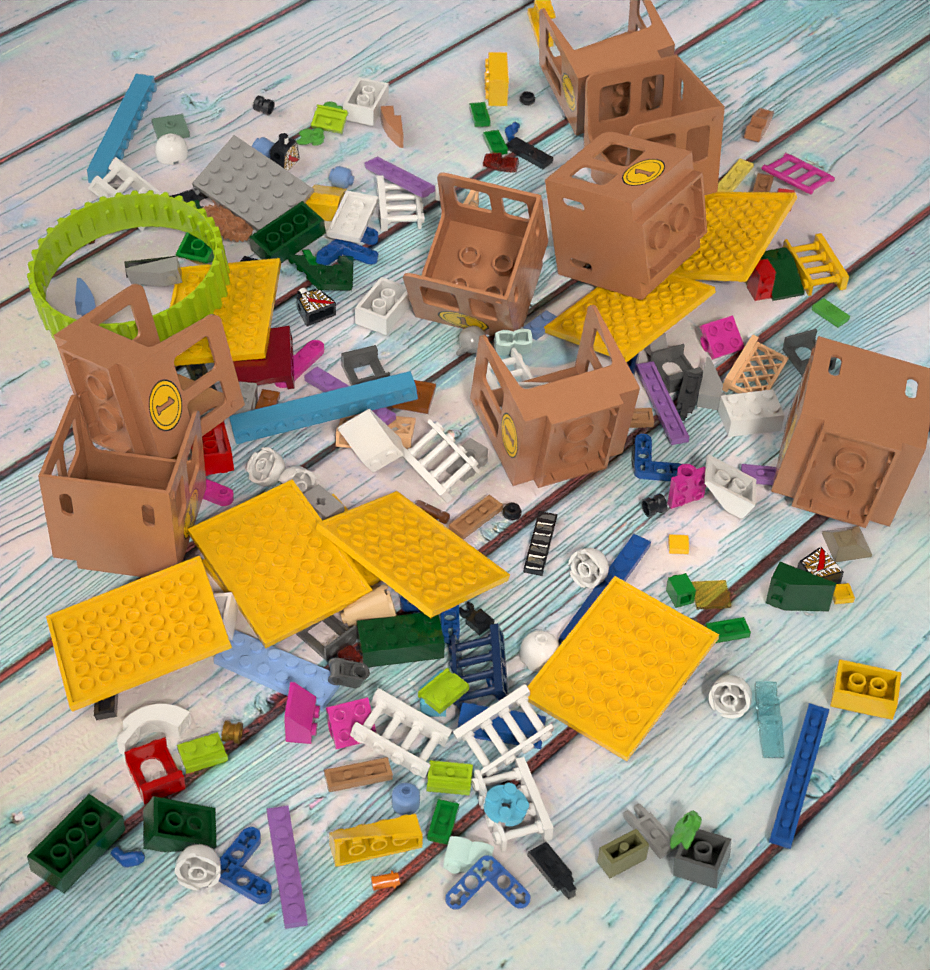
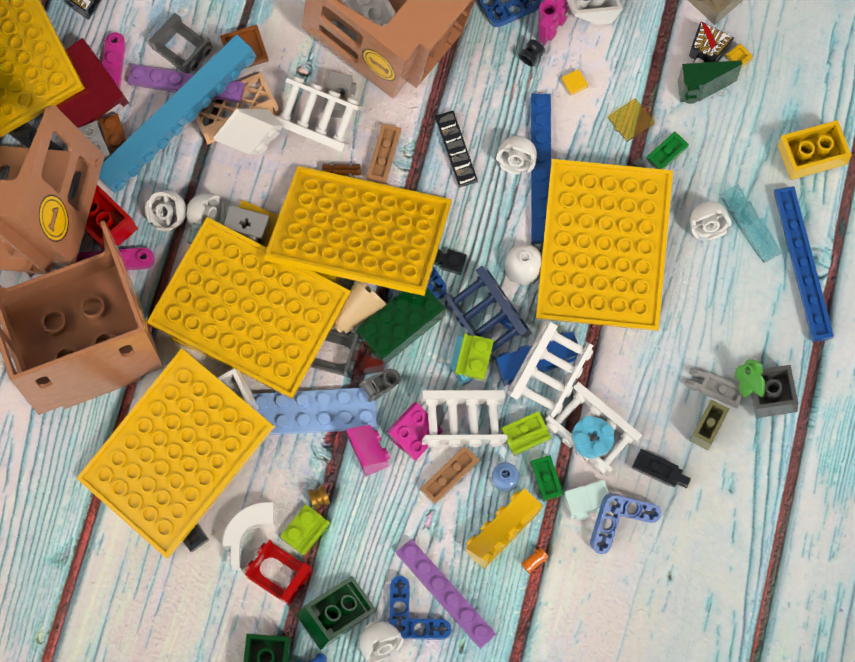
camera: 25 degrees left, 25 degrees up
(512, 511) = (414, 125): black plate -> none
(680, 590) = (605, 132): green brick -> none

